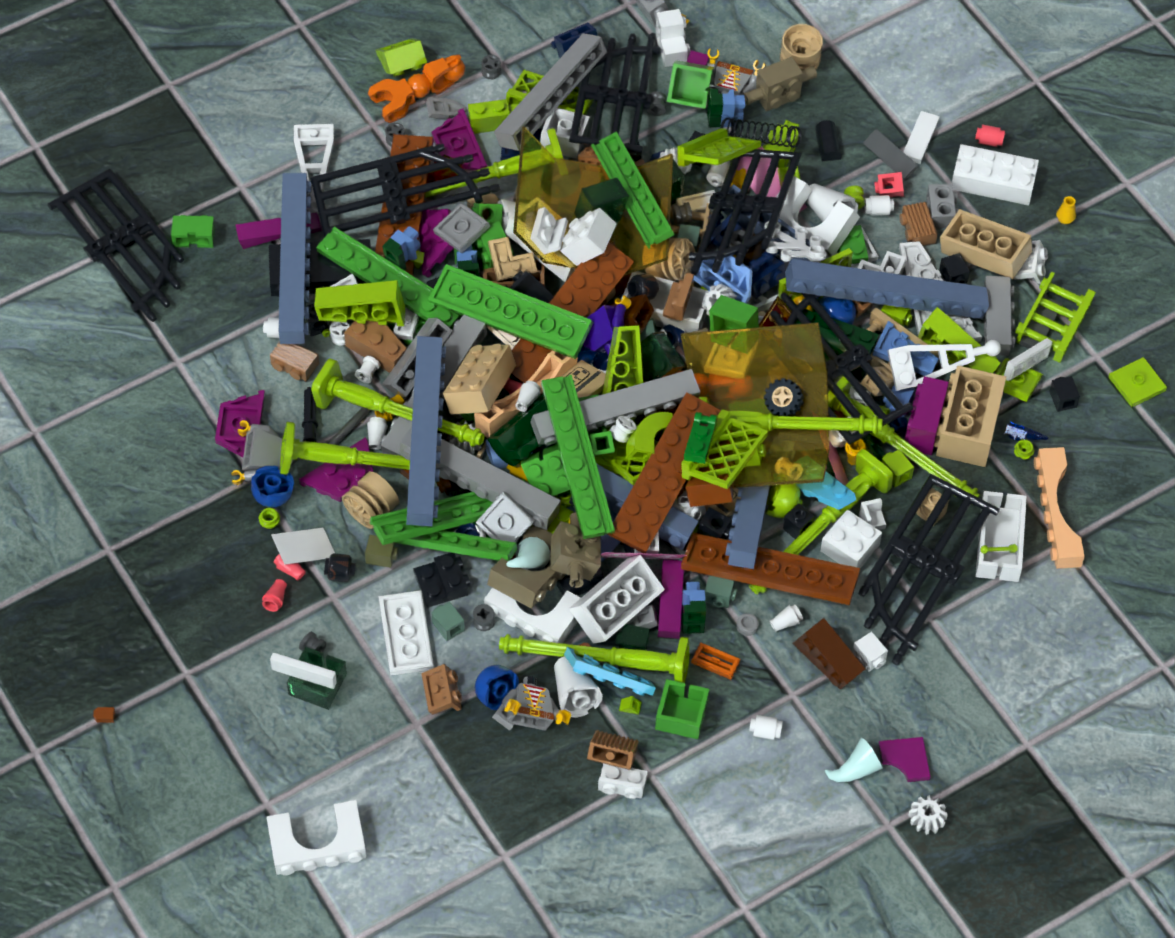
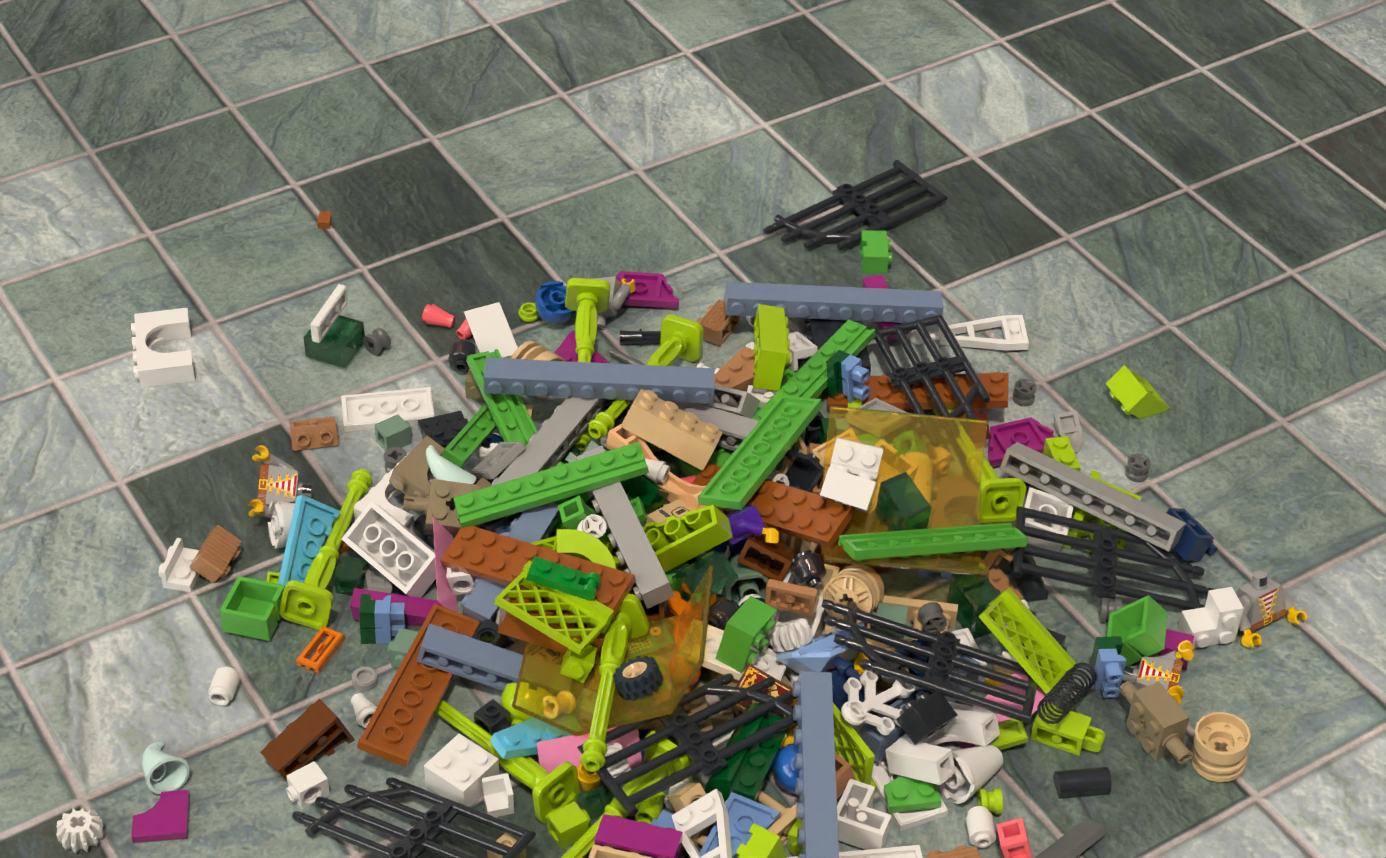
camera: 90 degrees right, 15 degrees down
(436, 77) = (1107, 416): orange piece -> none
(494, 684) = (309, 461): blue cylinder -> none
(805, 214) = (926, 716): none -> black brick

